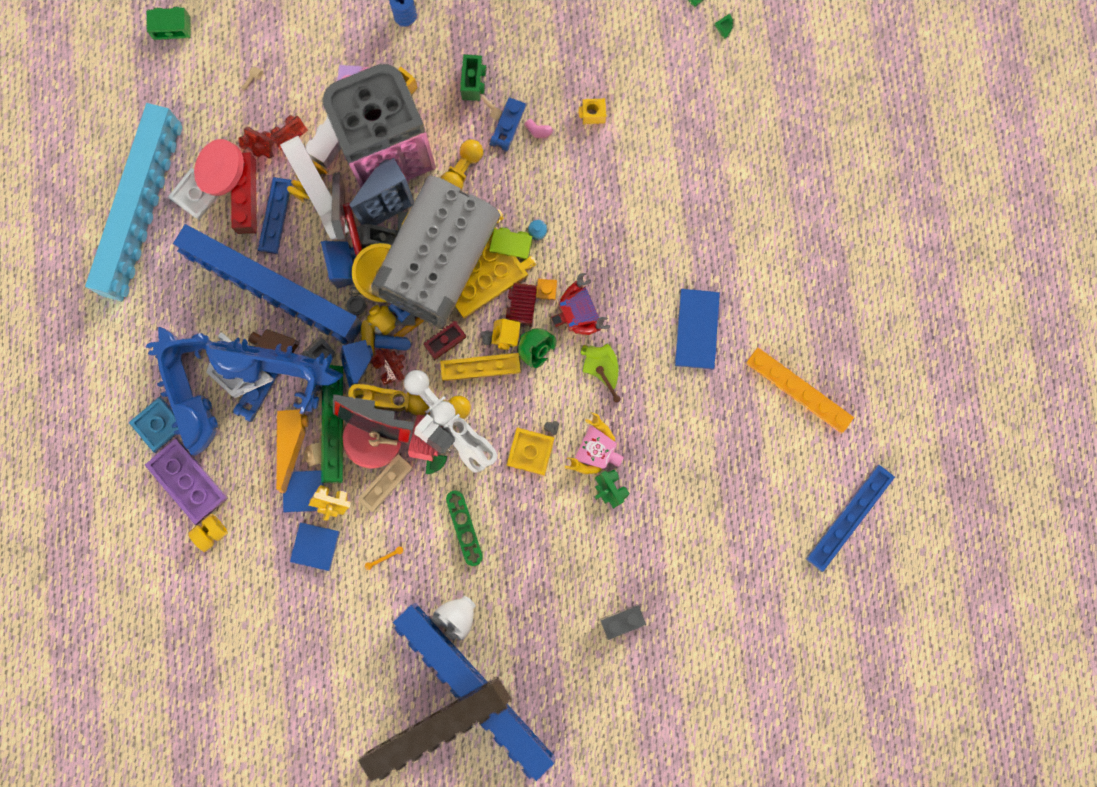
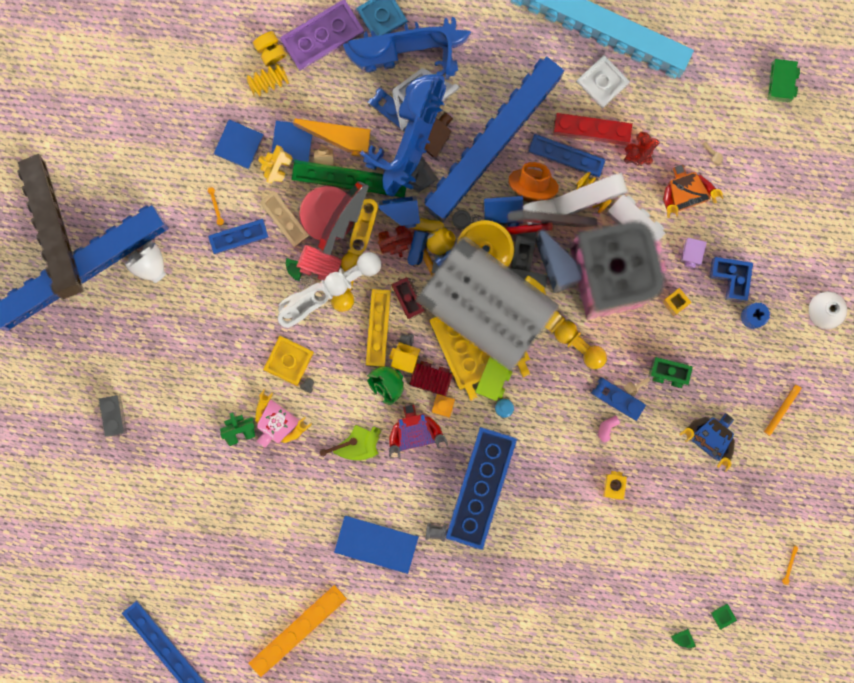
camera: 100 degrees right, 5 degrees up
(218, 167) = (620, 109): coral piece -> none
(240, 529) = (267, 79): none -> yellow piece
(291, 91) = (688, 191): none -> torso
(293, 128) = (646, 183): clear red hips -> none
(307, 238) = (532, 183): none -> orange helmet
(367, 32) = (736, 273): none -> blue brick
(380, 440) = (323, 222): tan hand -> none
(411, 527) = (238, 236): none -> blue plate
(434, 434) = (316, 272): leg -> none
(466, 527) = (228, 283): green beam -> none
(529, 27) = (713, 438): none -> torso
(621, 235) = (481, 488): none -> blue brick
(673, 272) = (436, 532): none -> flat silver bush

